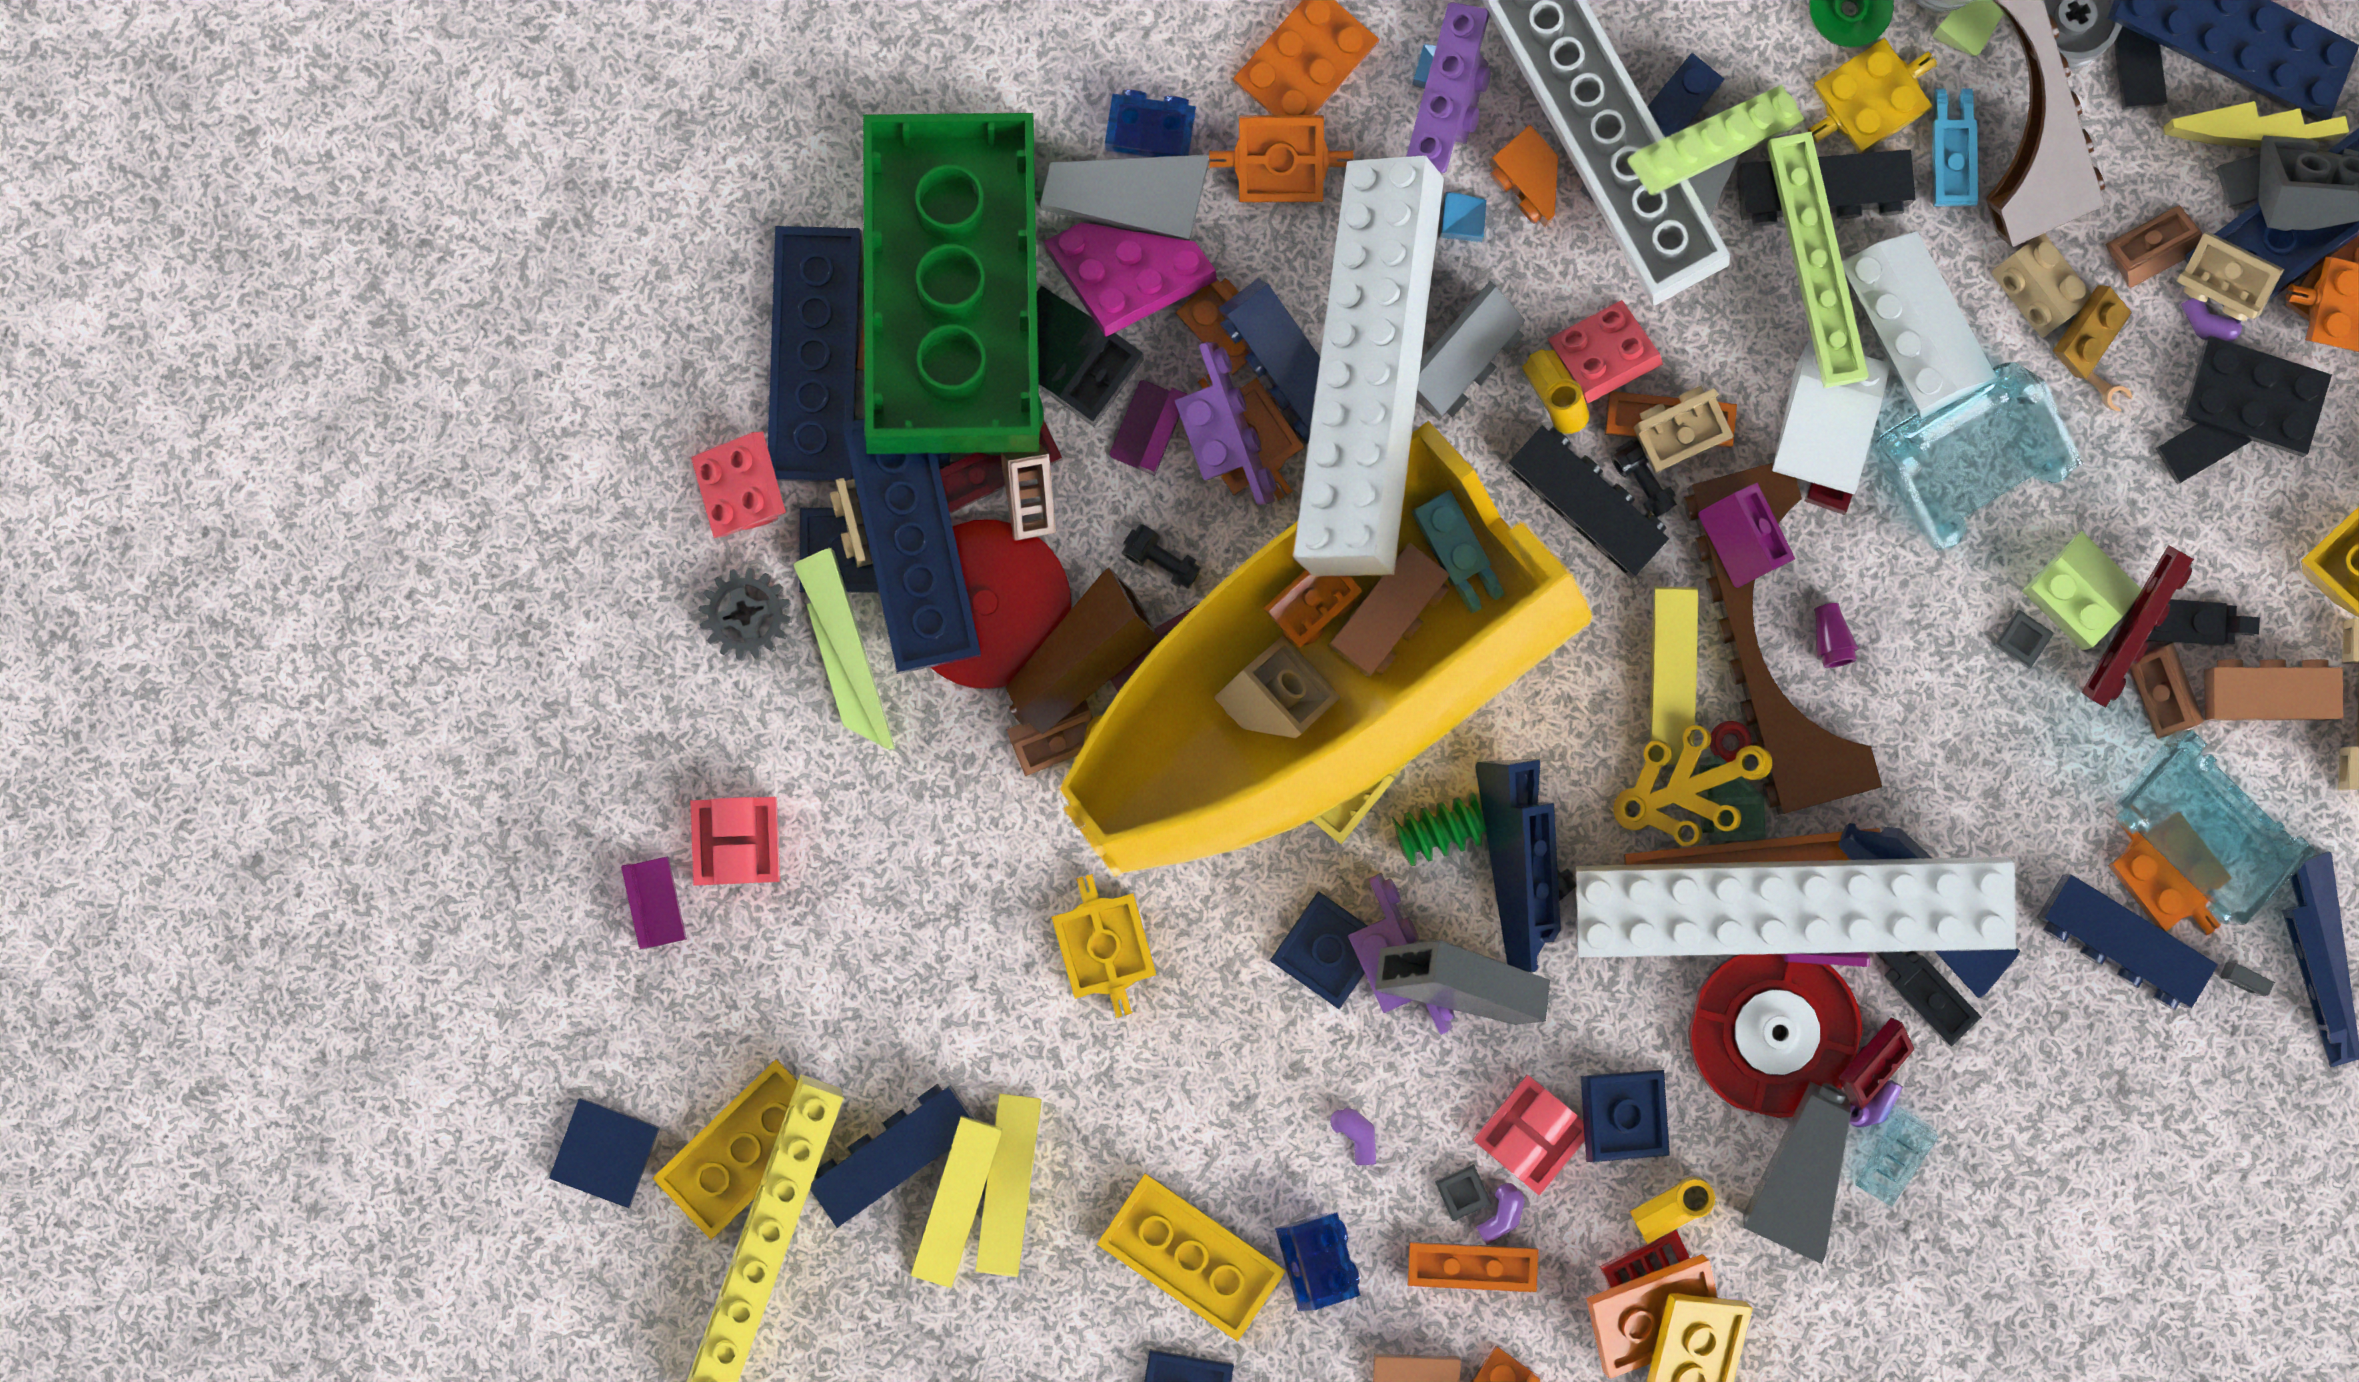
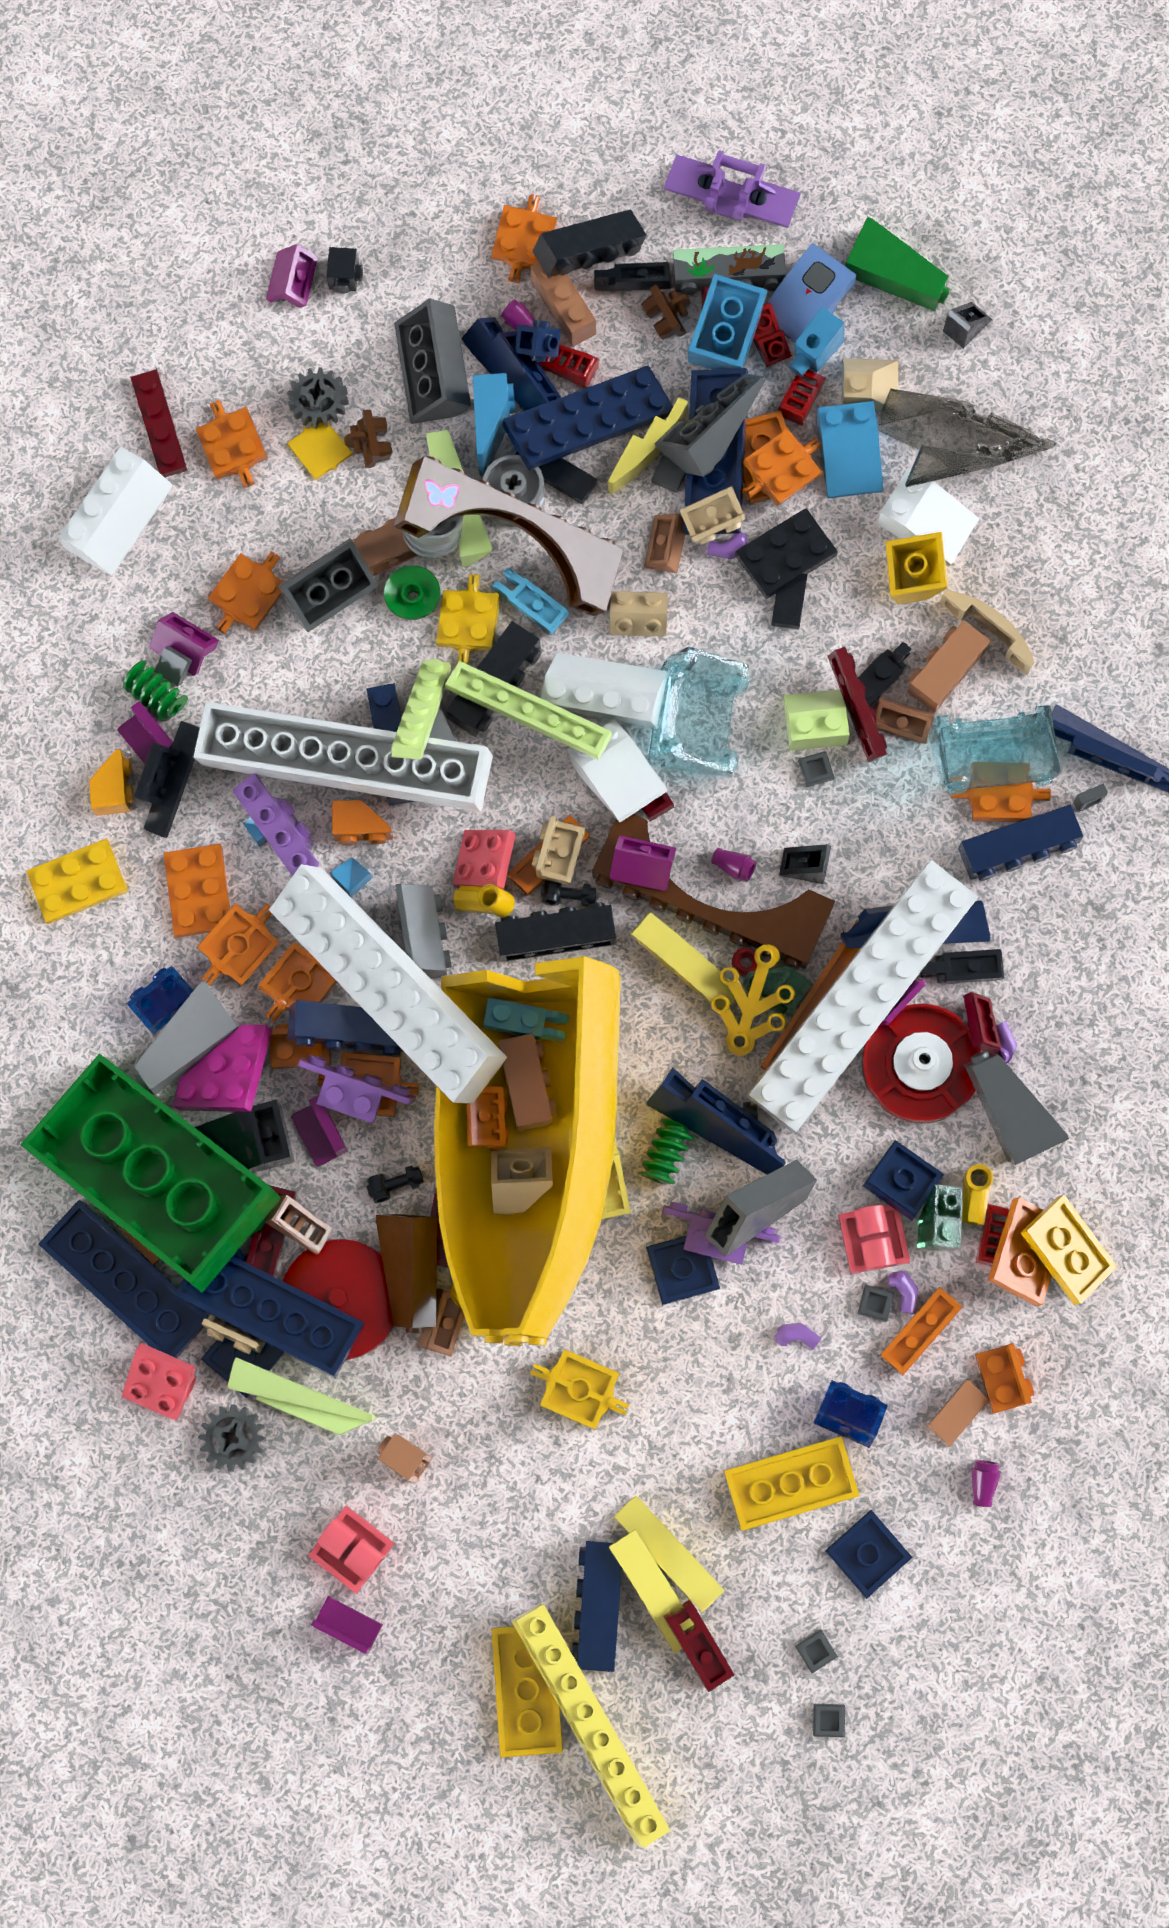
camera: 50 degrees left, 10 degrees down
(604, 1152) = (463, 1774): dark blue tile -> none
(873, 818) = (403, 1457): none -> nougat brick
(937, 1297) = (699, 1646): none -> dark red plate
(1292, 259) = (295, 978): none -> orange plate
(1614, 1193) = (941, 1219): none -> clear green slope
(1892, 1134) = (1048, 1040): clear light blue slope -> none
(1901, 716) = (806, 863): none -> black slope
(2092, 331) = (683, 607): pearl gold plate -> none
(2107, 390) = (718, 625): light nougat hand -> none

